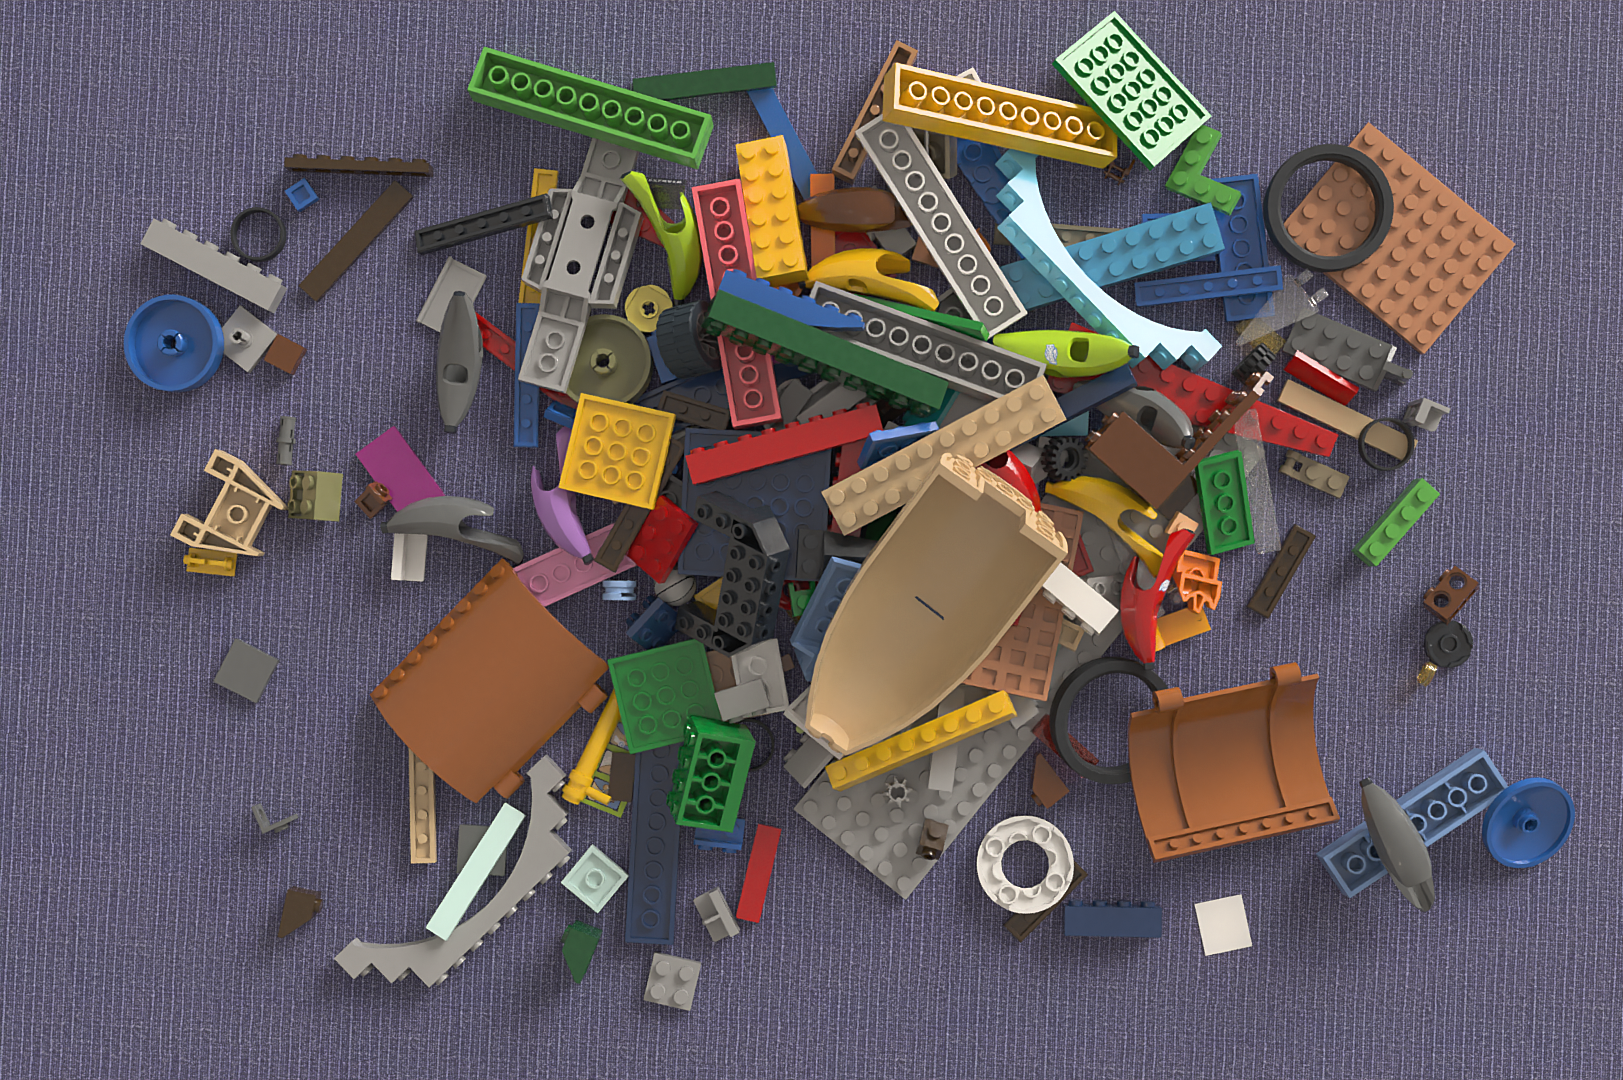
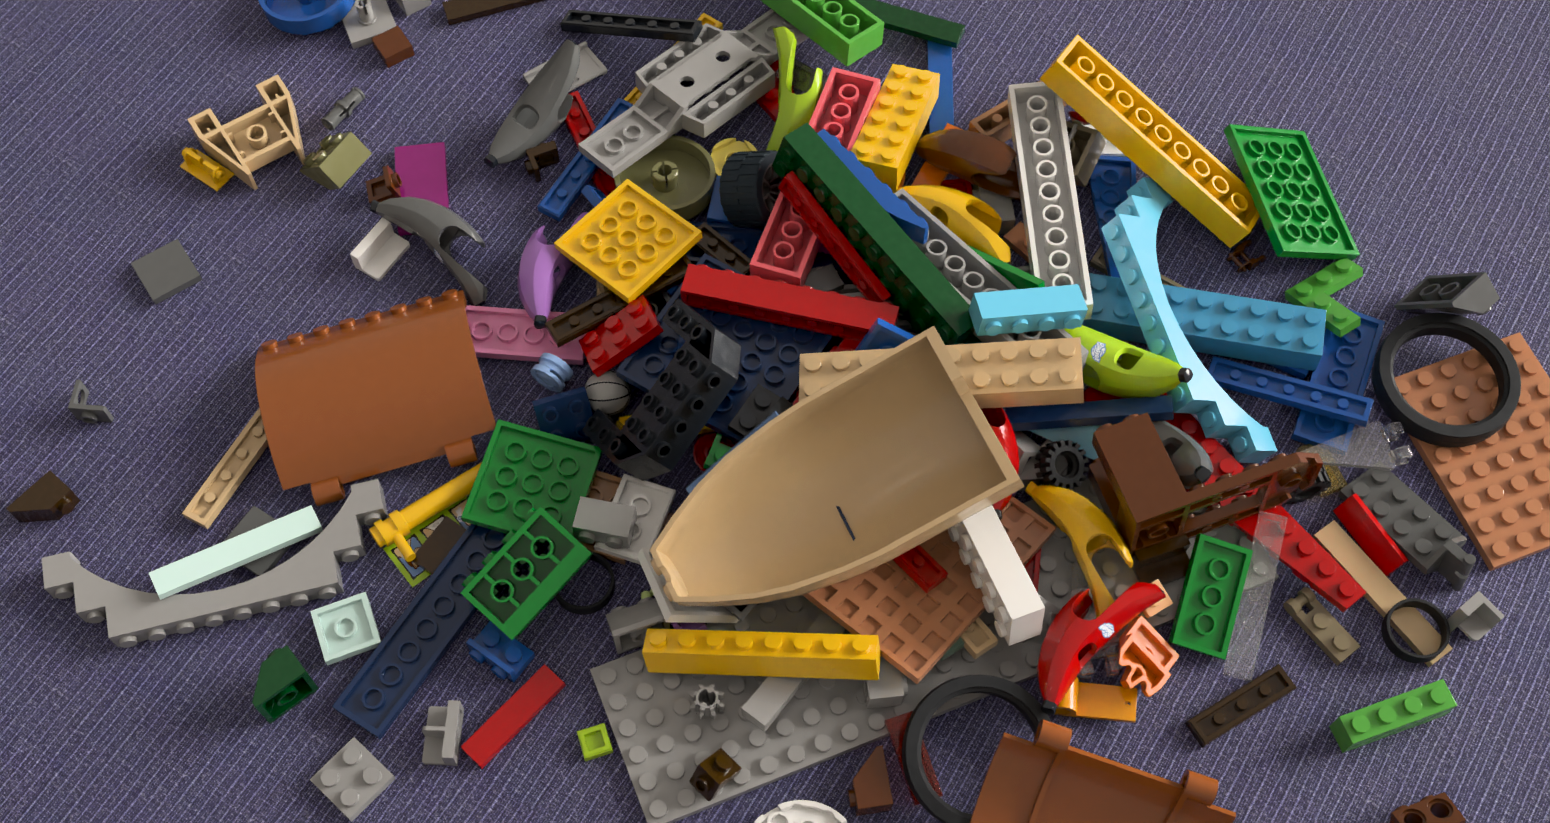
camera: 30 degrees right, 25 degrees down
(485, 393) = (540, 157): none -> dark brown bracket
(790, 369) = (833, 239): none -> red tile
(828, 858) = (594, 742): none -> lime tile
(983, 358) = (1027, 310): none -> medium azure brick
(1302, 133) = (1451, 294): none -> dark grey slope

